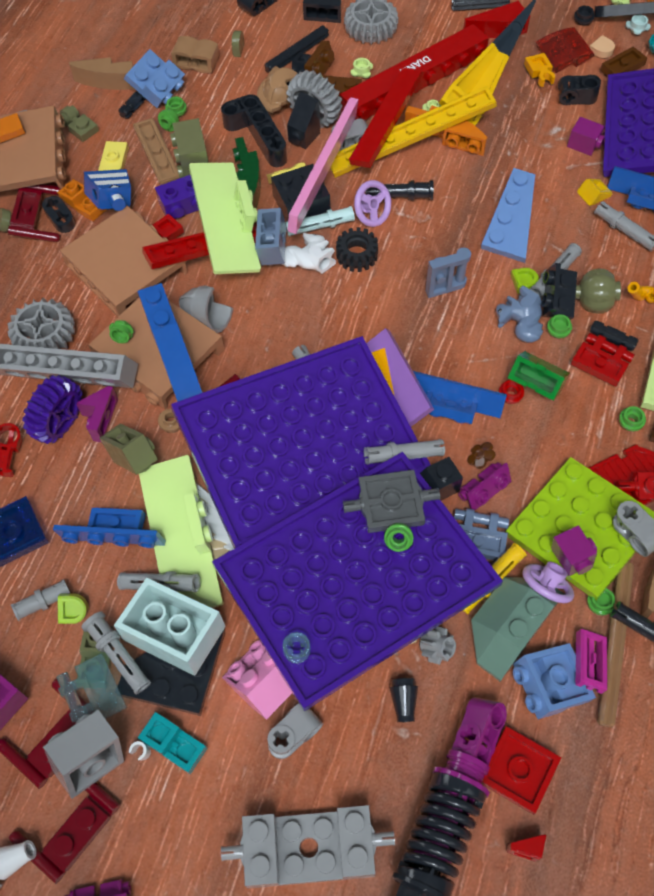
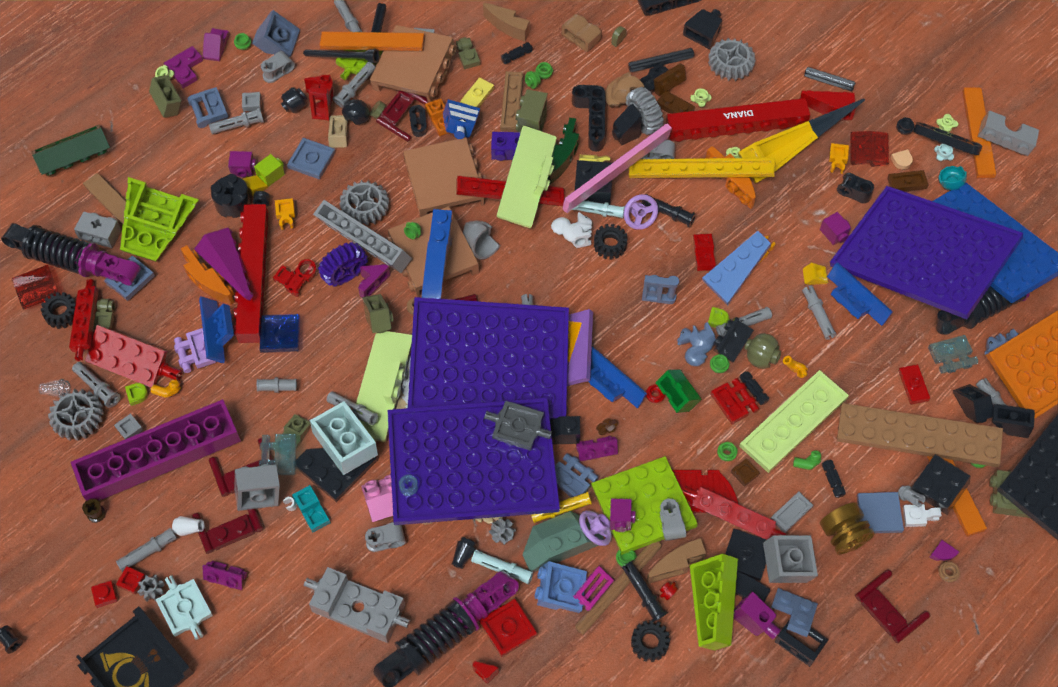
camera: 25 degrees right, 0 degrees up
(71, 608) = (292, 399): lime tile -> none
(110, 639) = (303, 430): light grey pin -> none
(112, 526) = (342, 359): blue bracket -> none
(155, 78) = (539, 41): medium blue plate -> none
(168, 227) = (486, 166): red plate -> none
(270, 236) = (550, 206): sand blue brick -> none
(386, 117) = (688, 148): red tile -> none
(395, 544) = (503, 450): bright green plate -> none
(411, 450) = (553, 399): light grey pin -> none
(463, 217) = (704, 252): none -> red slope
(463, 691) = (499, 565): none -> light aqua pin

